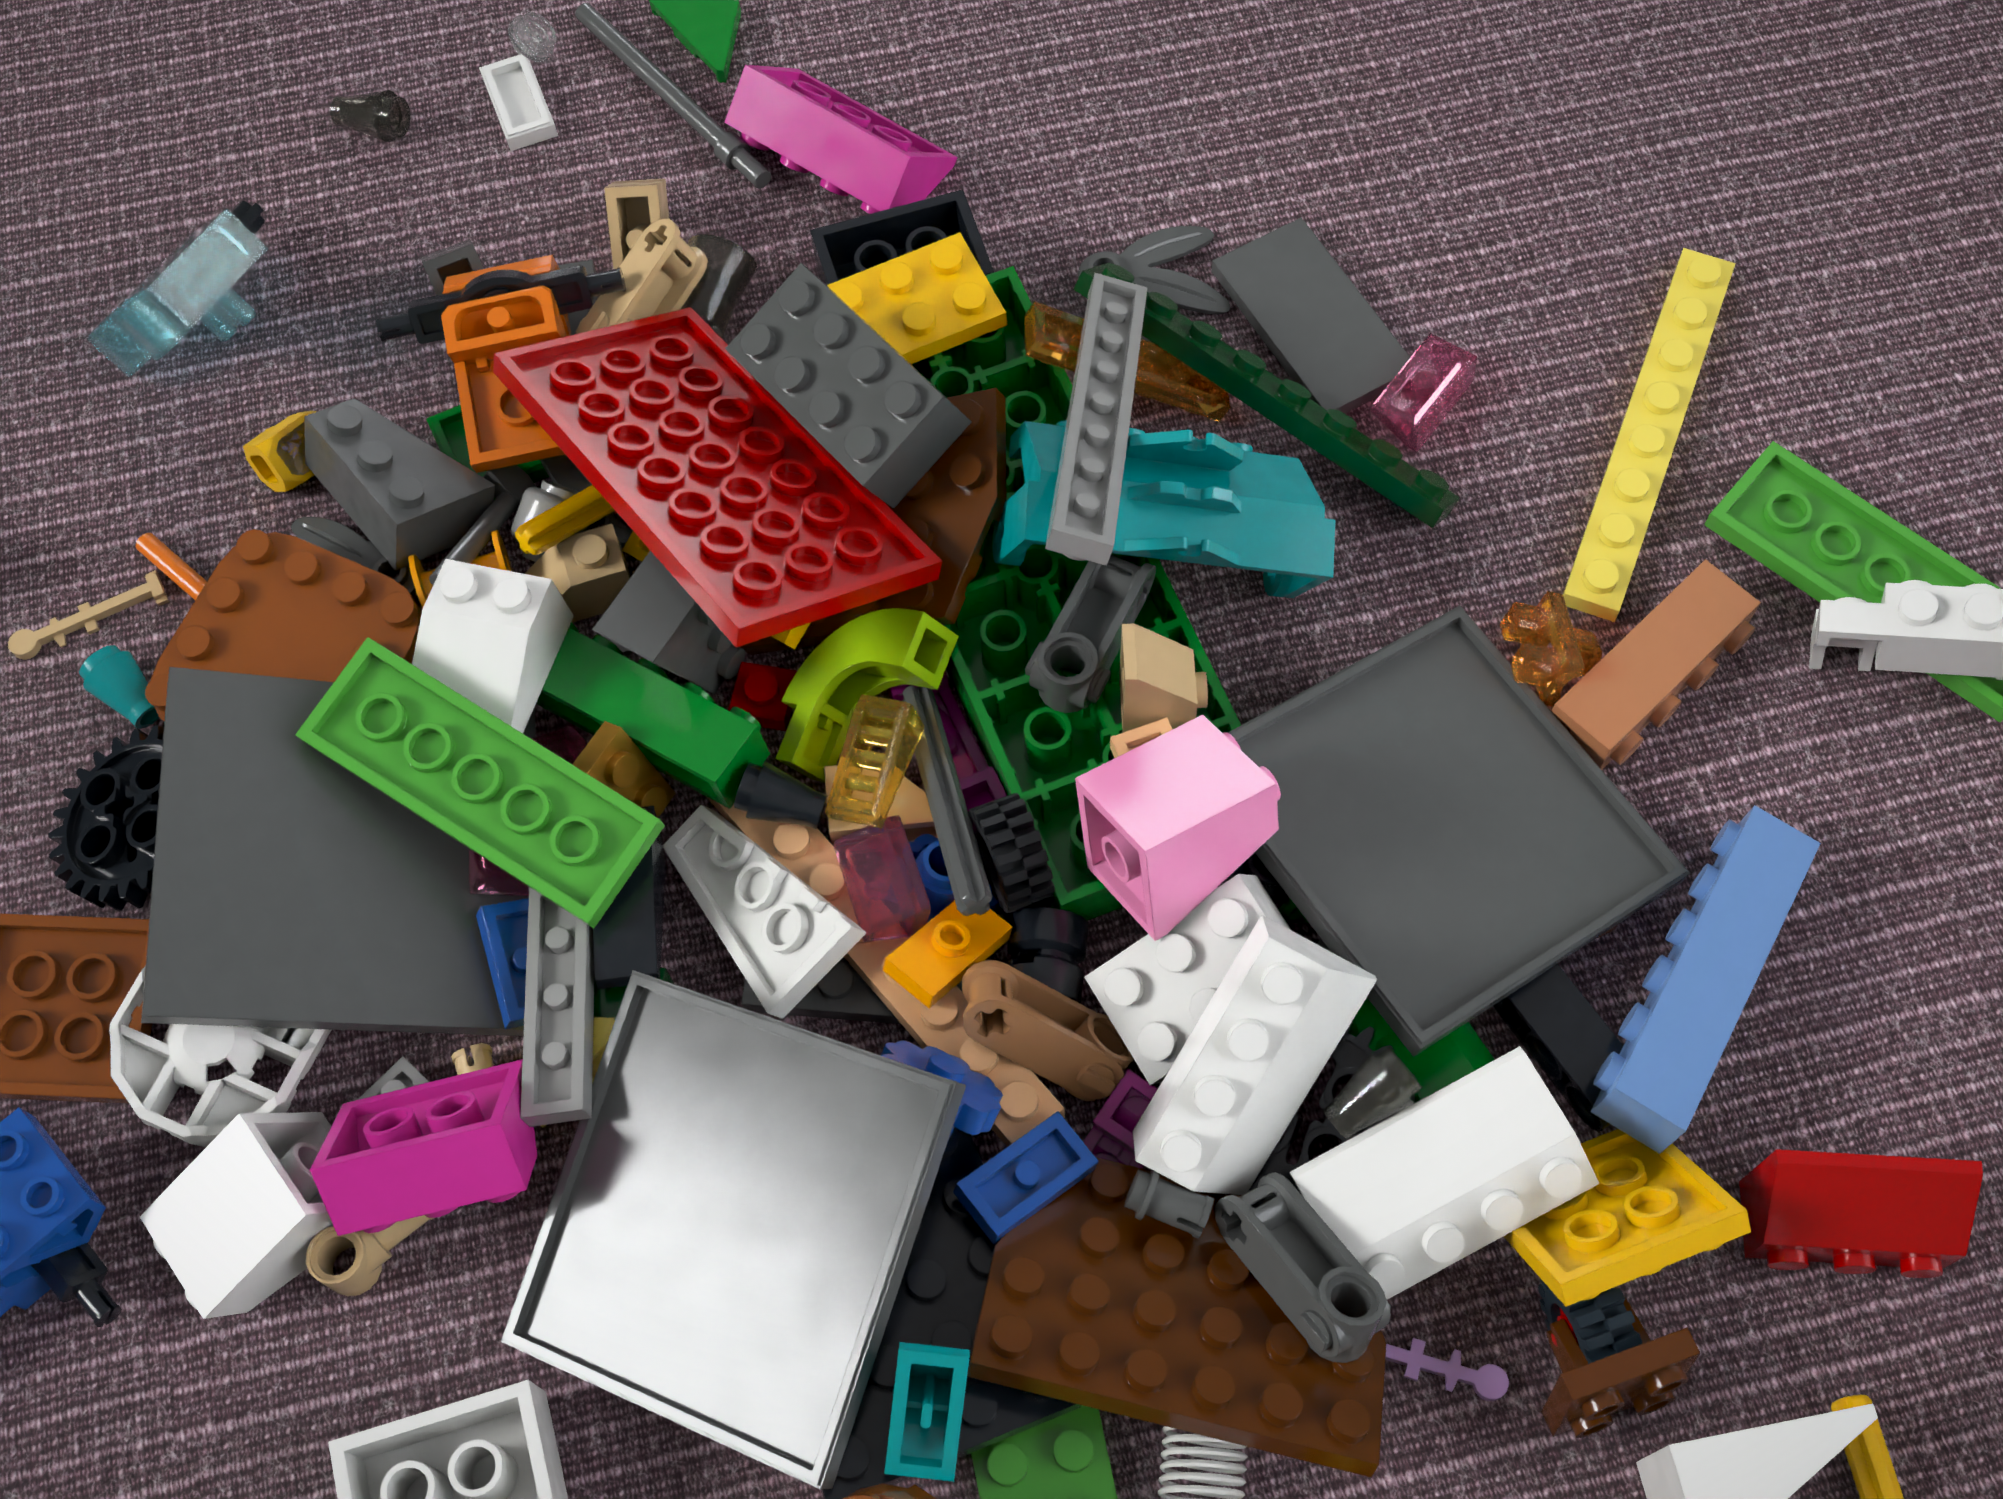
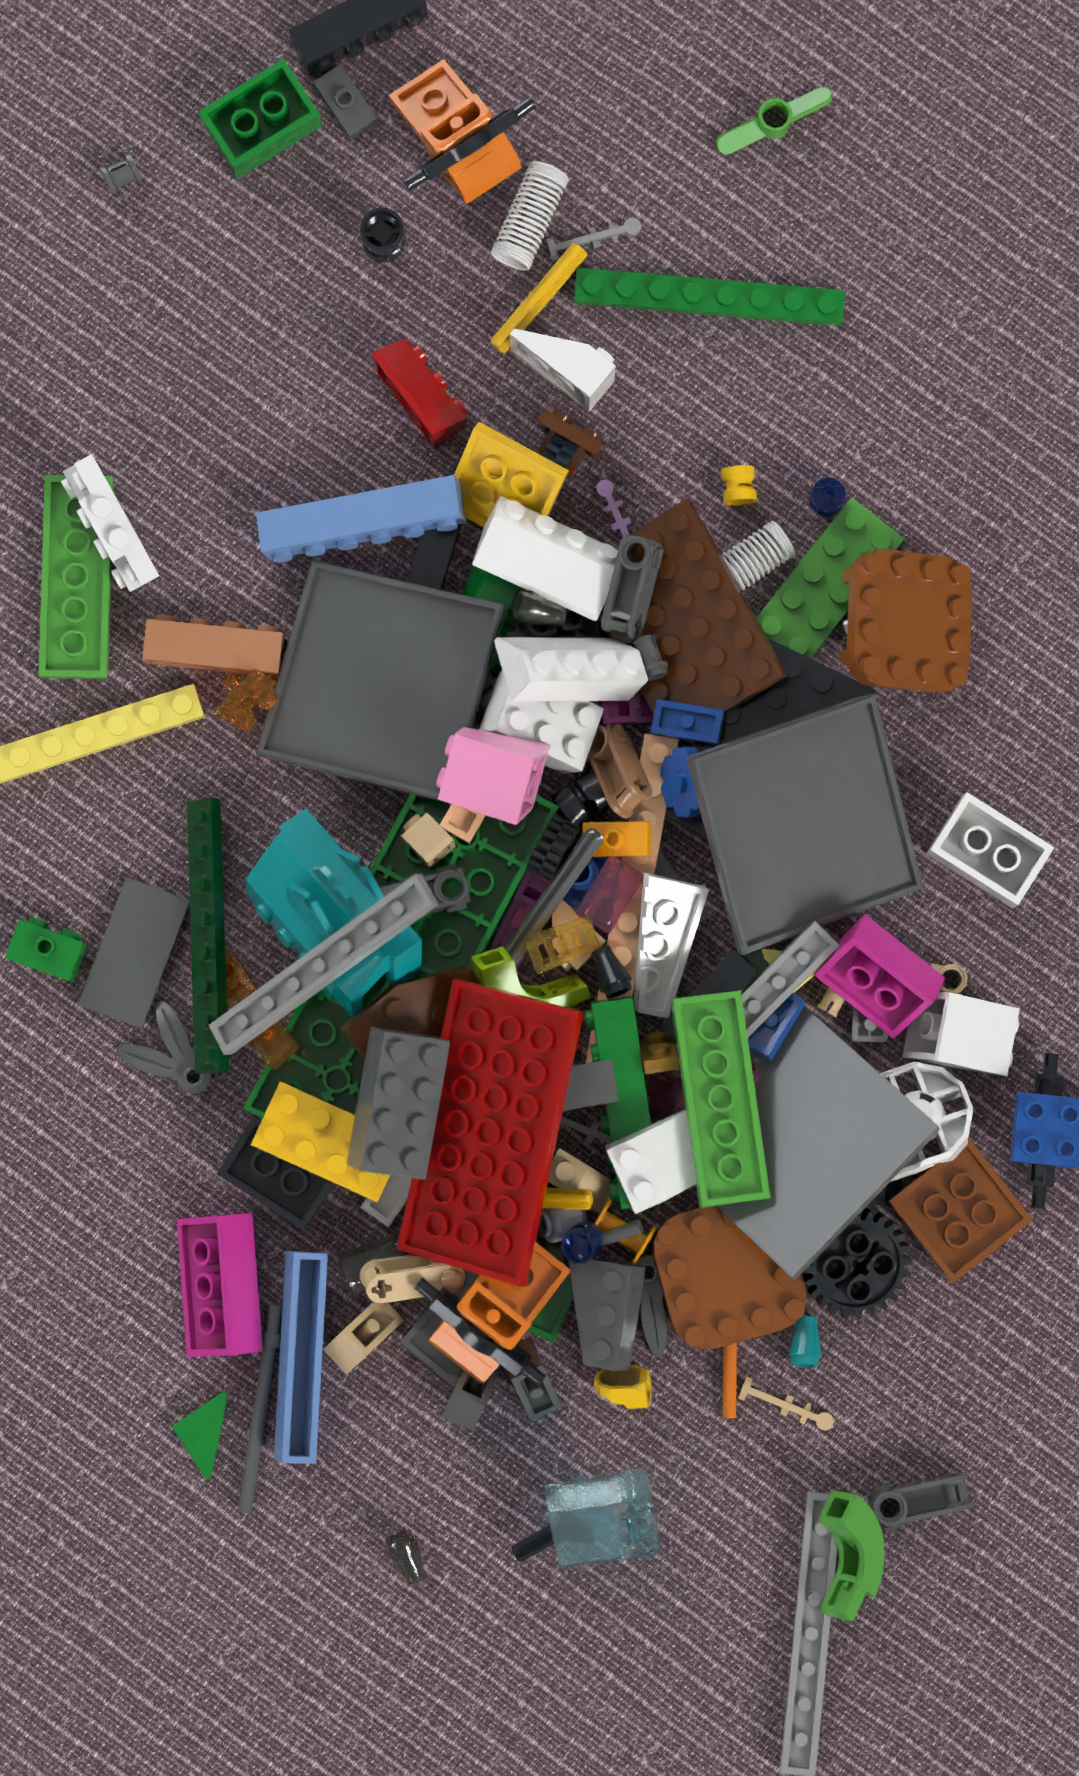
camera: 135 degrees left, 20 degrees up
(408, 368) = (536, 1400): none -> dark grey slope
(487, 499) = (576, 1247): none -> clear blue wheel
(518, 102) = (330, 1489): white tile -> none
(532, 36) = (287, 1517): clear plate -> none
(681, 149) = (300, 1357): none -> medium blue brick
(927, 1411) = (814, 678): teal slope -> none
(1396, 226) = (47, 950): none -> green brick
(1425, 390) = (138, 864): clear pink slope -> none

